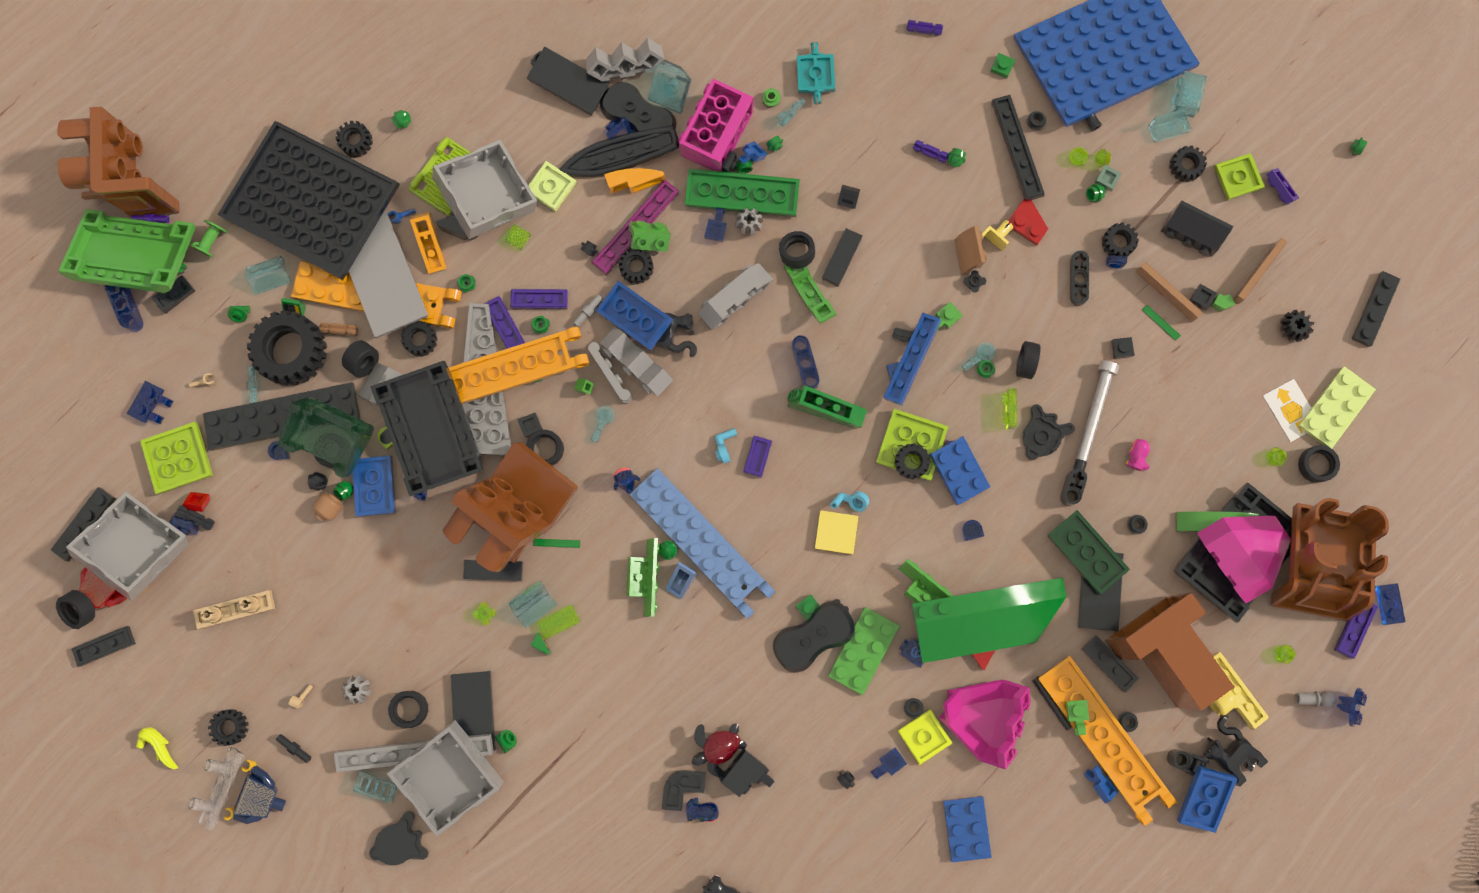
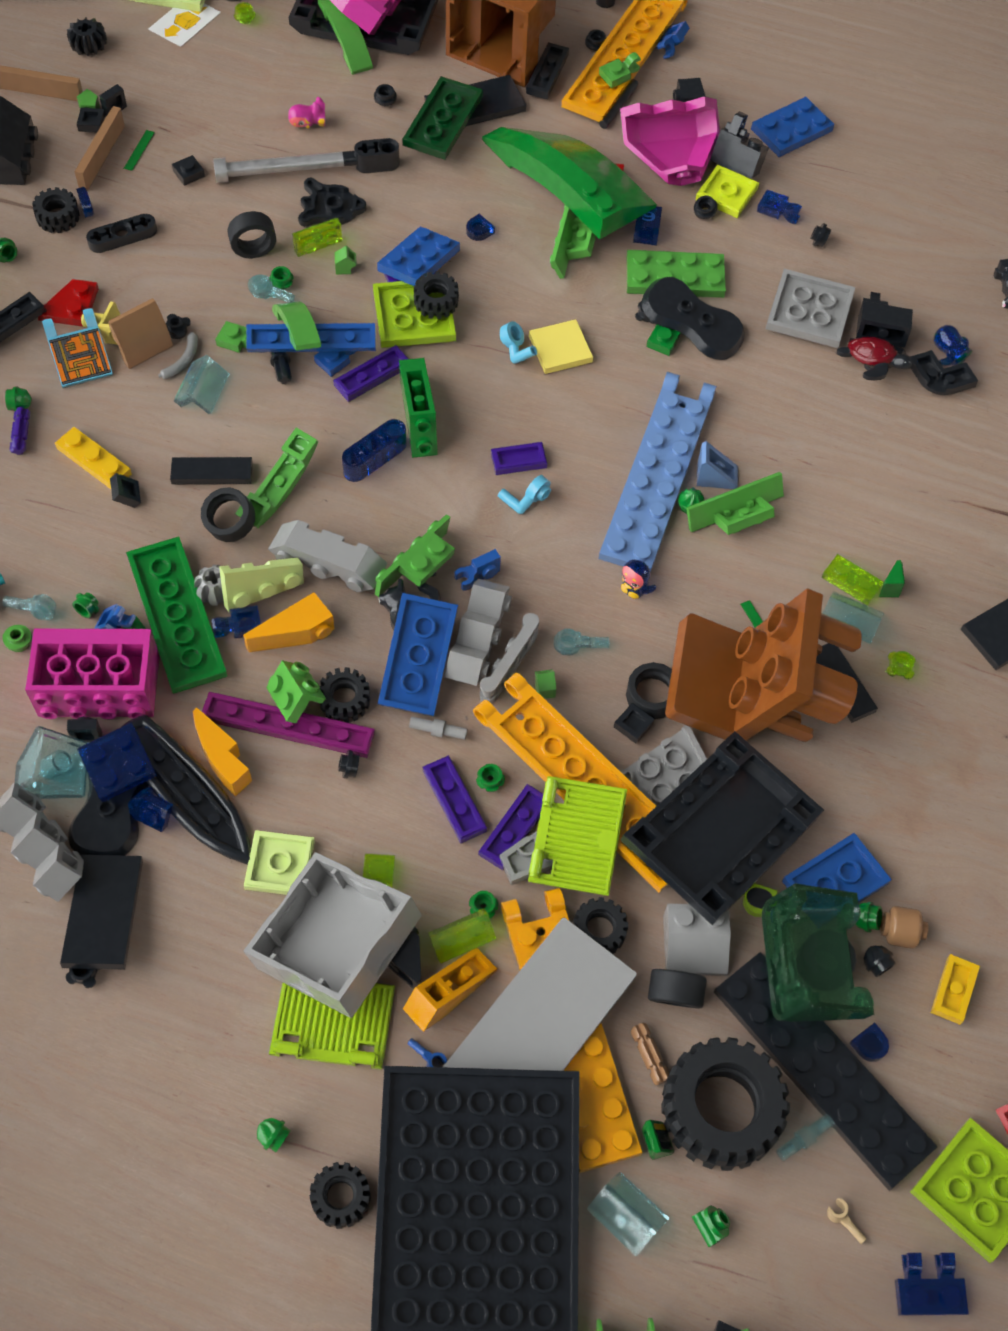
camera: 125 degrees left, 20 degrees down
(279, 513) = (955, 989): none -> yellow plate
(453, 261) = (462, 935): none -> clear neon green plate
(470, 348) = (578, 836): none -> lime window
(651, 118) = (116, 762): none -> clear blue plate
(681, 389) = (482, 568): none -> blue plate
(686, 111) = (84, 728): none -> black plate
(696, 258) = (294, 626): none -> light orange slope
(701, 350) = (420, 560): none -> bright green bracket
(734, 237) = (255, 583): none -> yellowish green wing
(784, 729) = (810, 308): none -> light grey plate
(874, 394) = (370, 374): none -> dark purple tile
(887, 188) = (91, 456): none -> yellow plate
(914, 277) = (202, 384): none -> clear light blue panel
(928, 353) = (300, 324): none -> bright green slope
(944, 278) = (184, 360): none -> light grey piece
(951, 762) = (737, 150): none -> black hinge
(977, 208) = (78, 354): none -> flag
(982, 415) = (345, 260): none -> bright green piece
(1031, 760) = (688, 90): none -> black brick
(1216, 319) = (113, 97): none -> black plate

